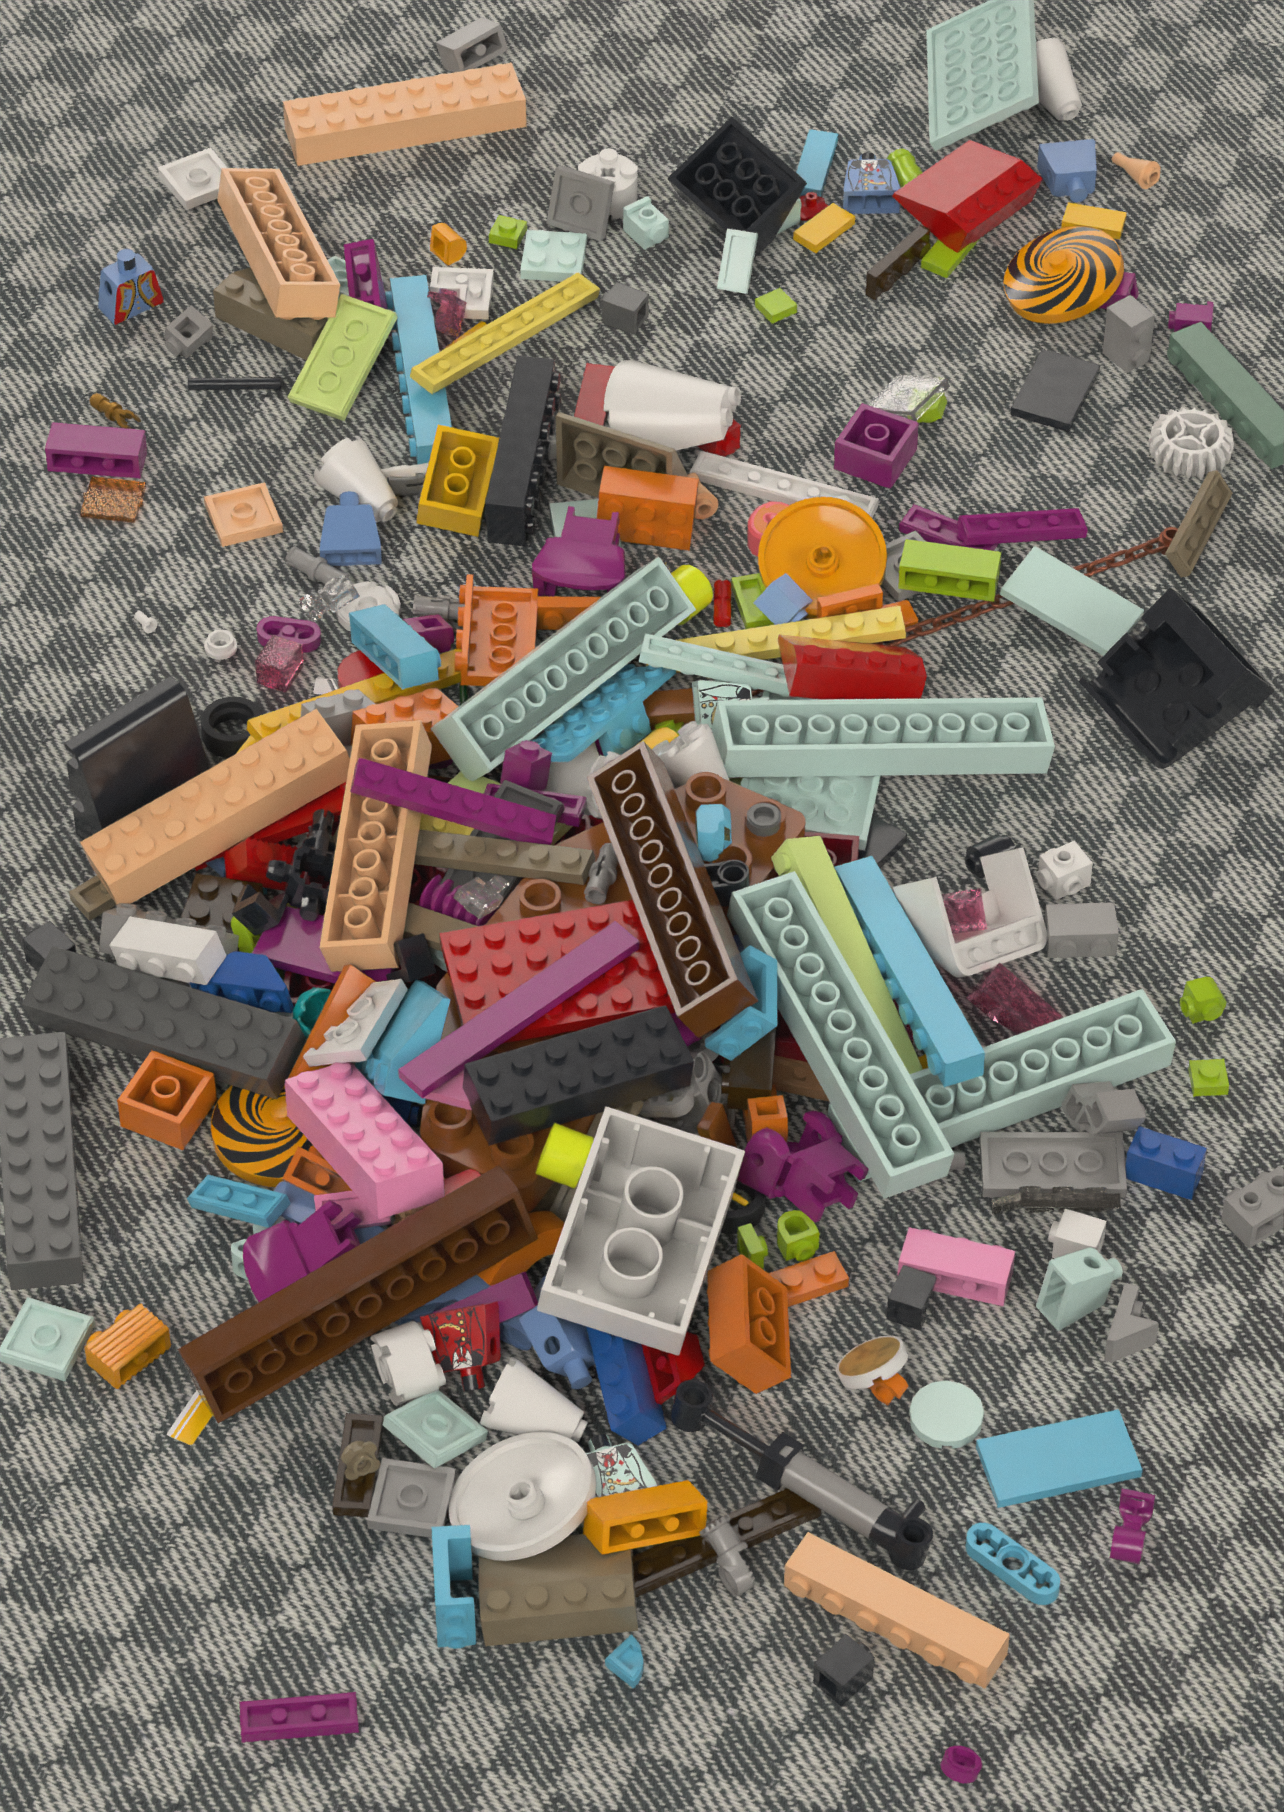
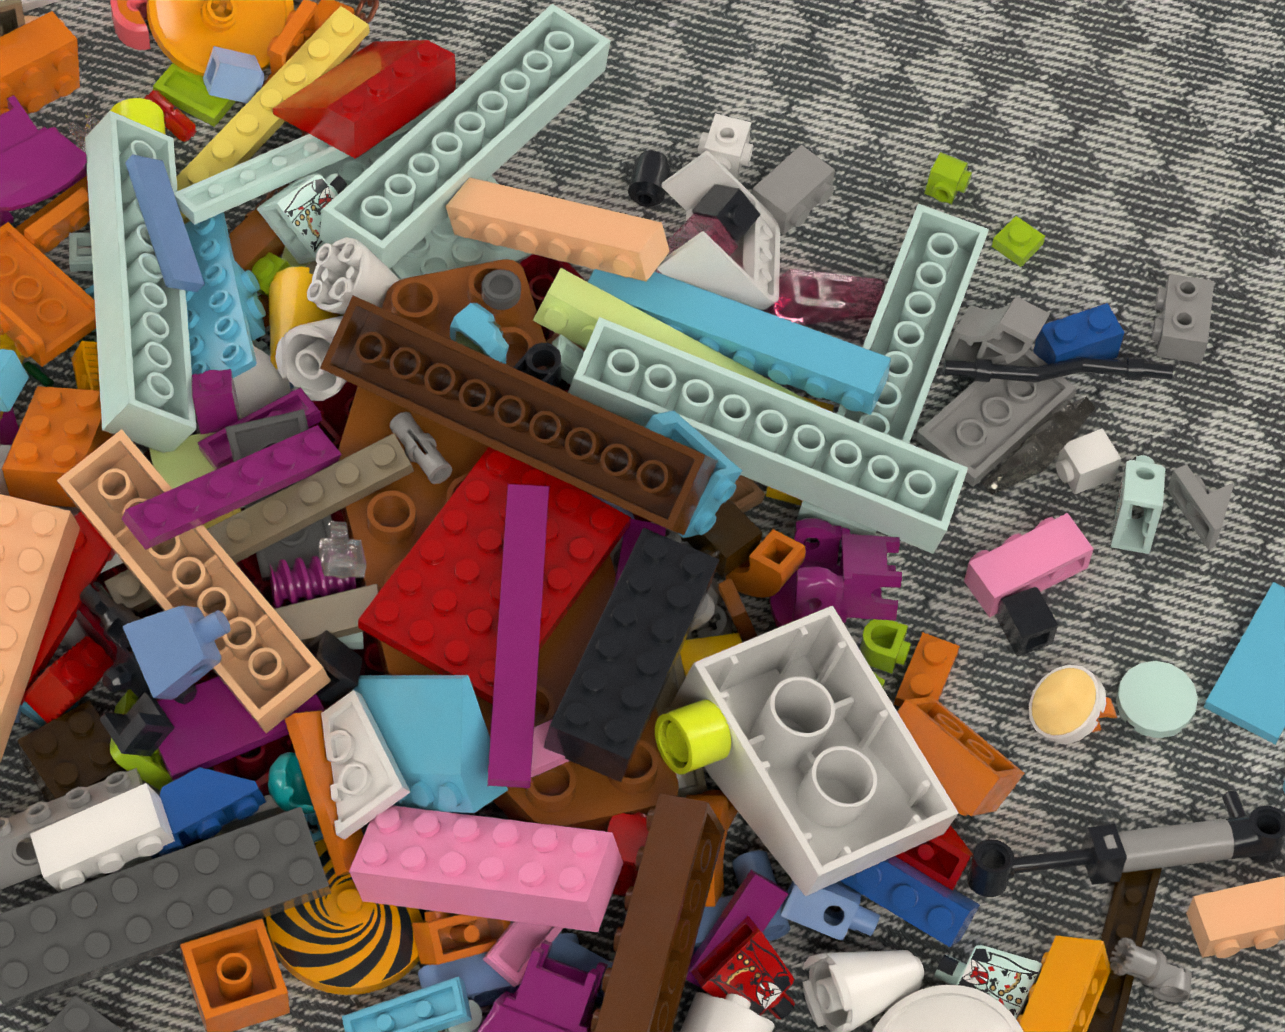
camera: 50 degrees left, 10 degrees up
(313, 868) = (176, 647): none -> medium blue torso
(616, 645) = (164, 223): none -> medium blue tile
(858, 820) = (558, 229): none -> light nougat brick
(1001, 901) = (729, 207): none -> black brick
(1179, 1204) = (984, 370): none -> black bar

